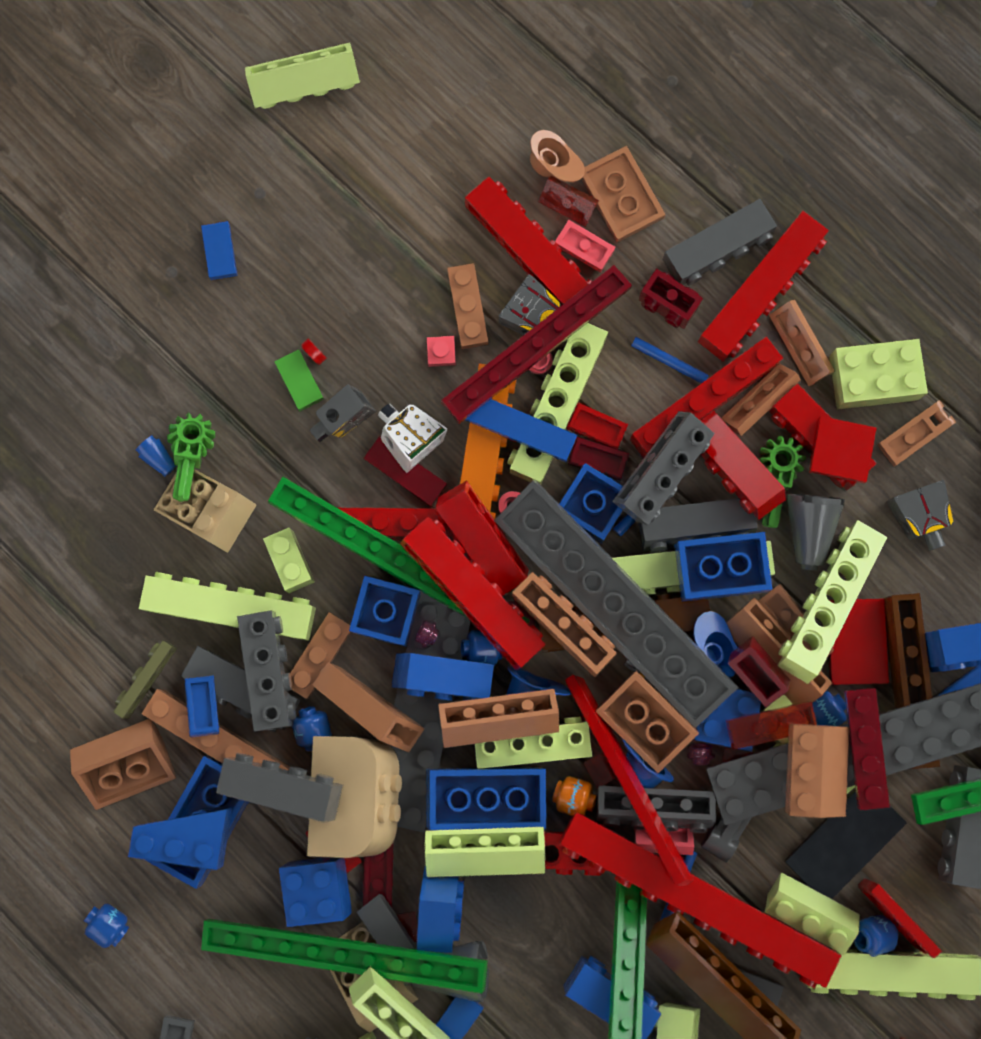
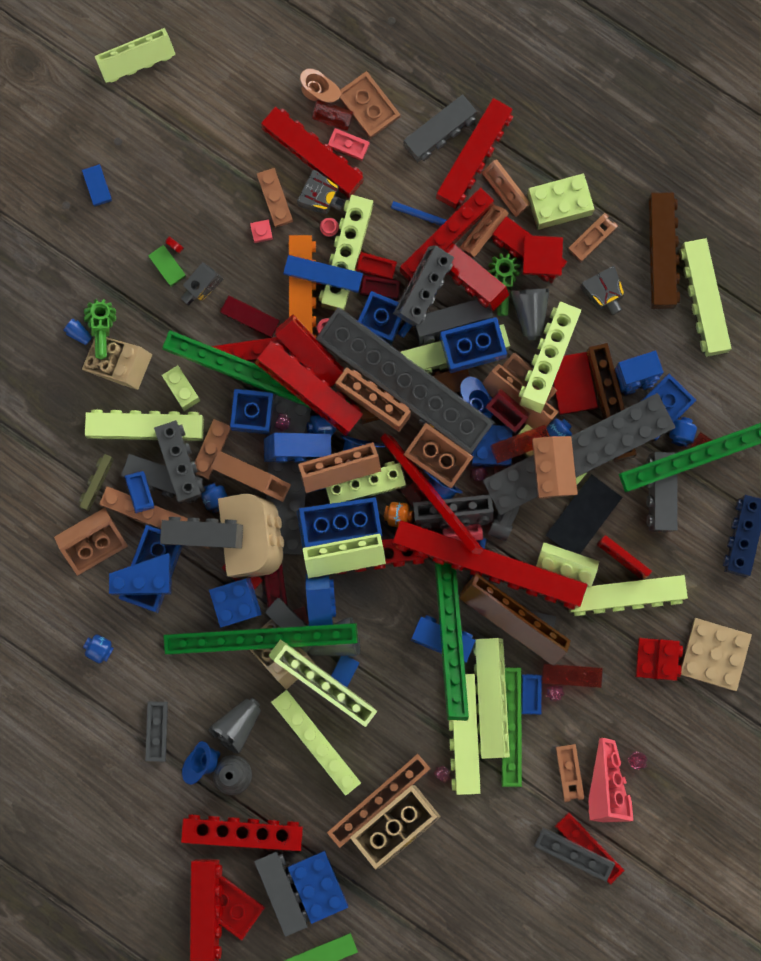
camera: 15 degrees left, 0 degrees up
(410, 434) = (249, 290): white torso -> none
(536, 344) = (325, 216): dark red plate -> none
(670, 299) = (412, 172): dark red brick -> none
(867, 749) = (584, 448): dark red plate -> none
(876, 935) = (611, 572): blue head -> none

